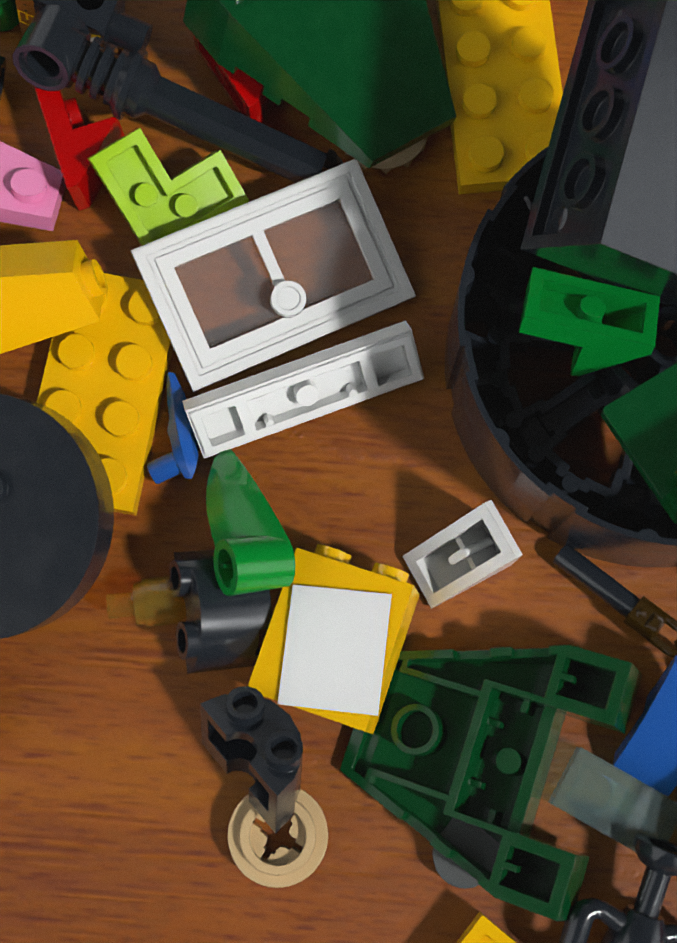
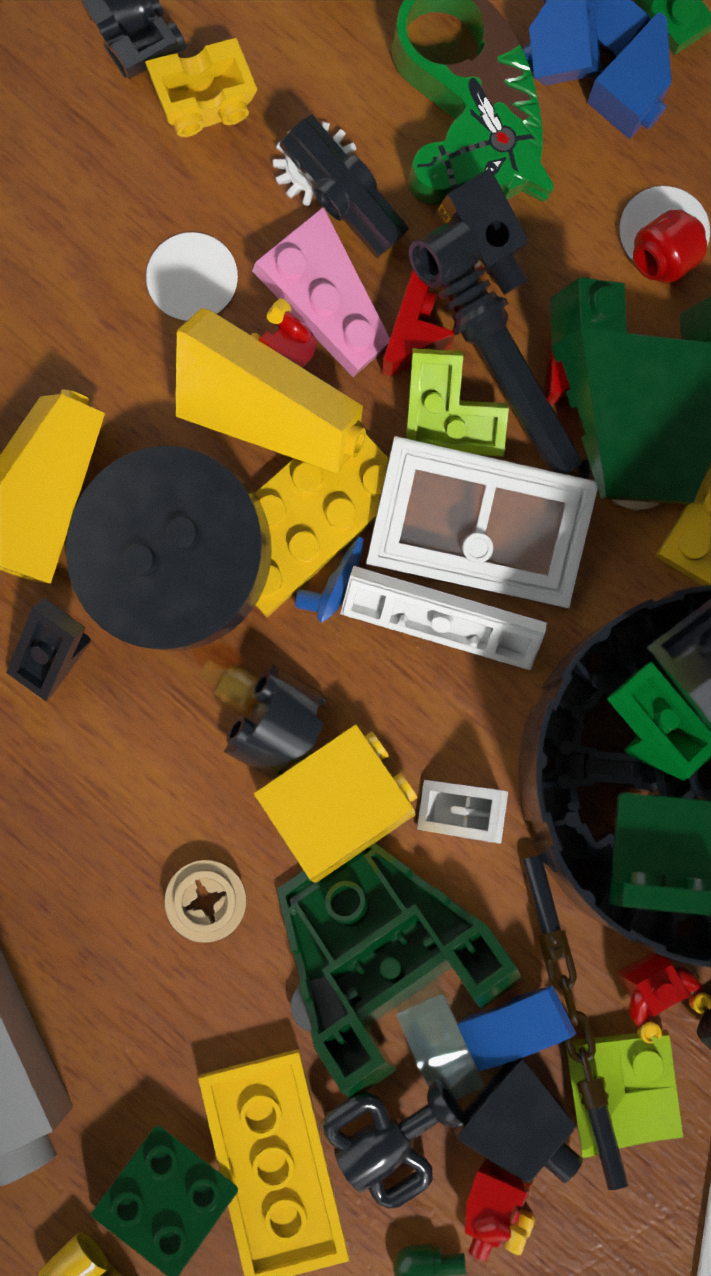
camera: 30 degrees right, 5 degrees up
(248, 538) = (329, 693): green piece -> none
(259, 739) = (238, 830): black cylinder -> none
(335, 649) = (330, 811): white sticker -> none

